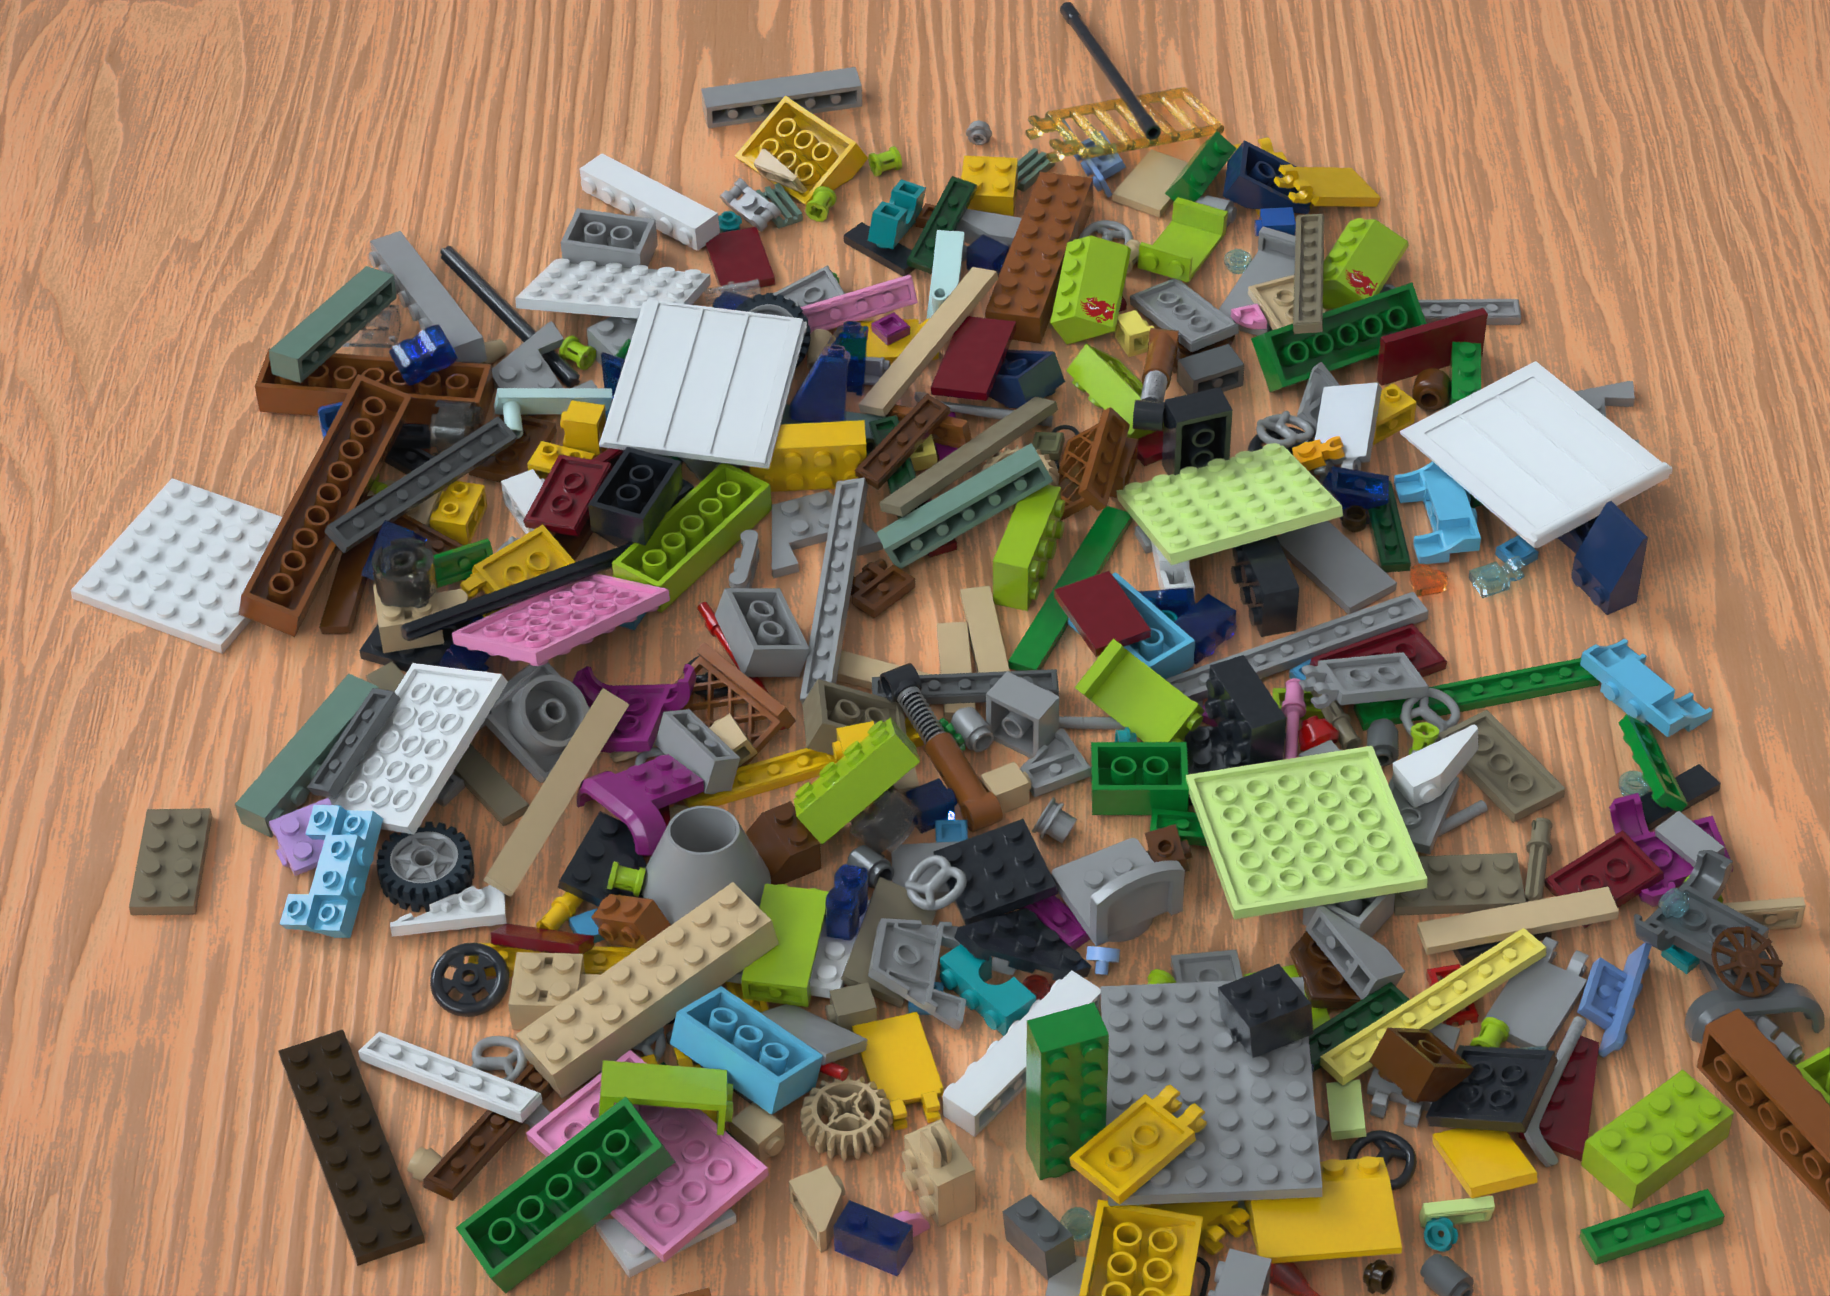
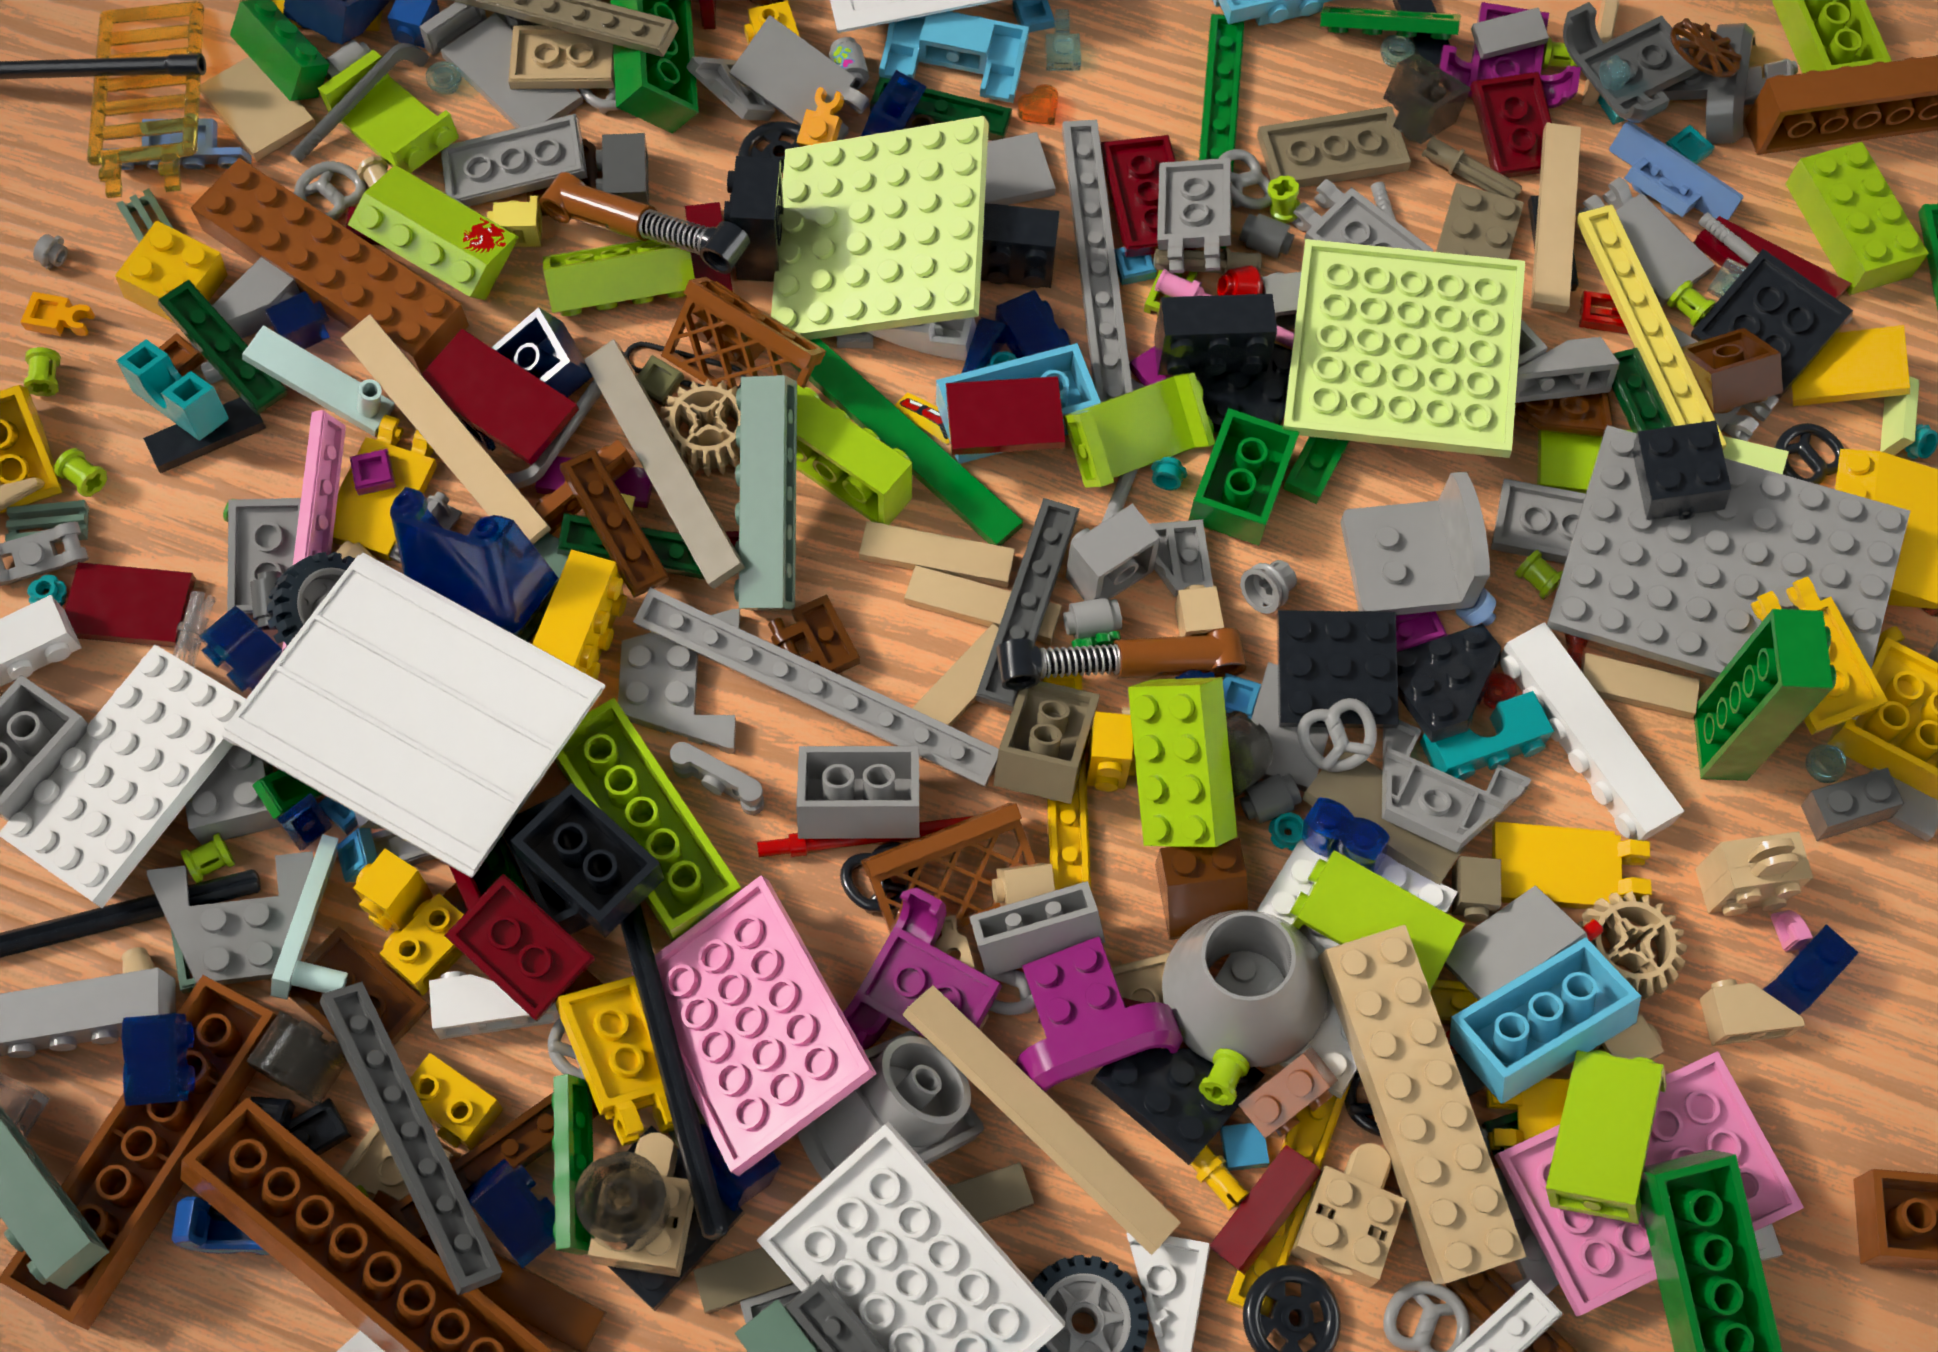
camera: 75 degrees left, 20 degrees up
(931, 151) = (53, 313): none -> light orange plate
(1166, 845) = (1359, 487): reddish brown brick -> none
(1194, 219) = (399, 52): none -> dark grey piece
(1249, 317) = (556, 100): bright pink tile -> none
(1277, 424) = (760, 140): light grey piece -> none
(1389, 458) = (850, 56): none -> light grey brick
(1432, 769) = (1348, 198): white slope -> none
(1575, 804) = (1425, 98): none -> clear smoke brick
(1666, 1010) = (1691, 145): none -> teal tile

